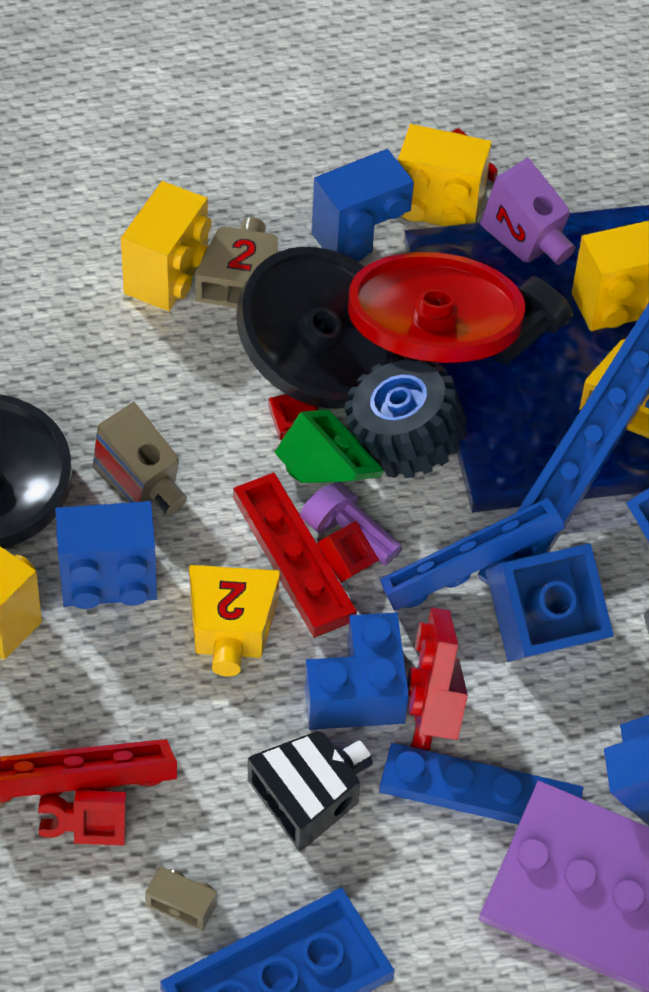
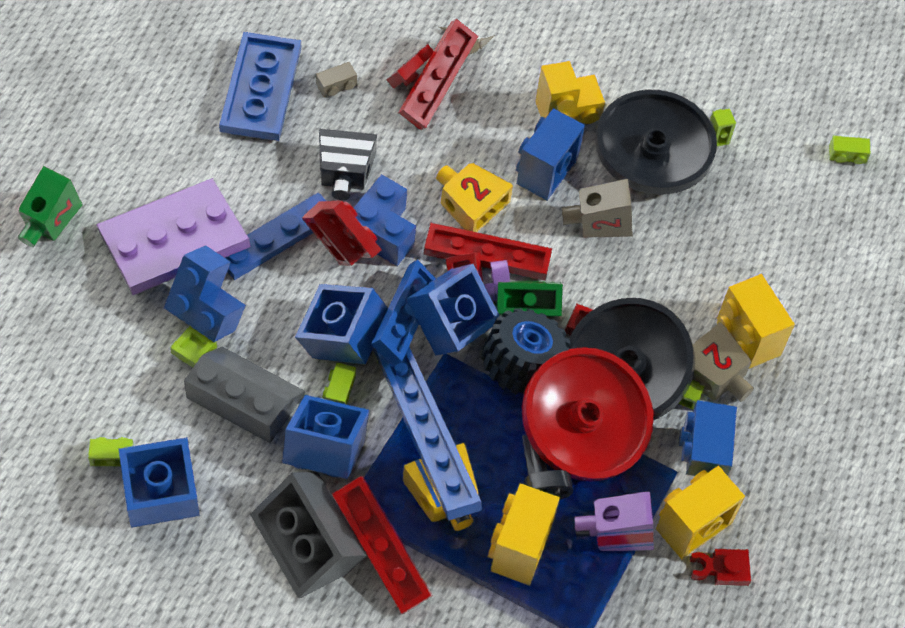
camera: 125 degrees right, 5 degrees up
(426, 504) = (454, 309): none -> blue brick
(618, 575) = (341, 383): none -> lime piece

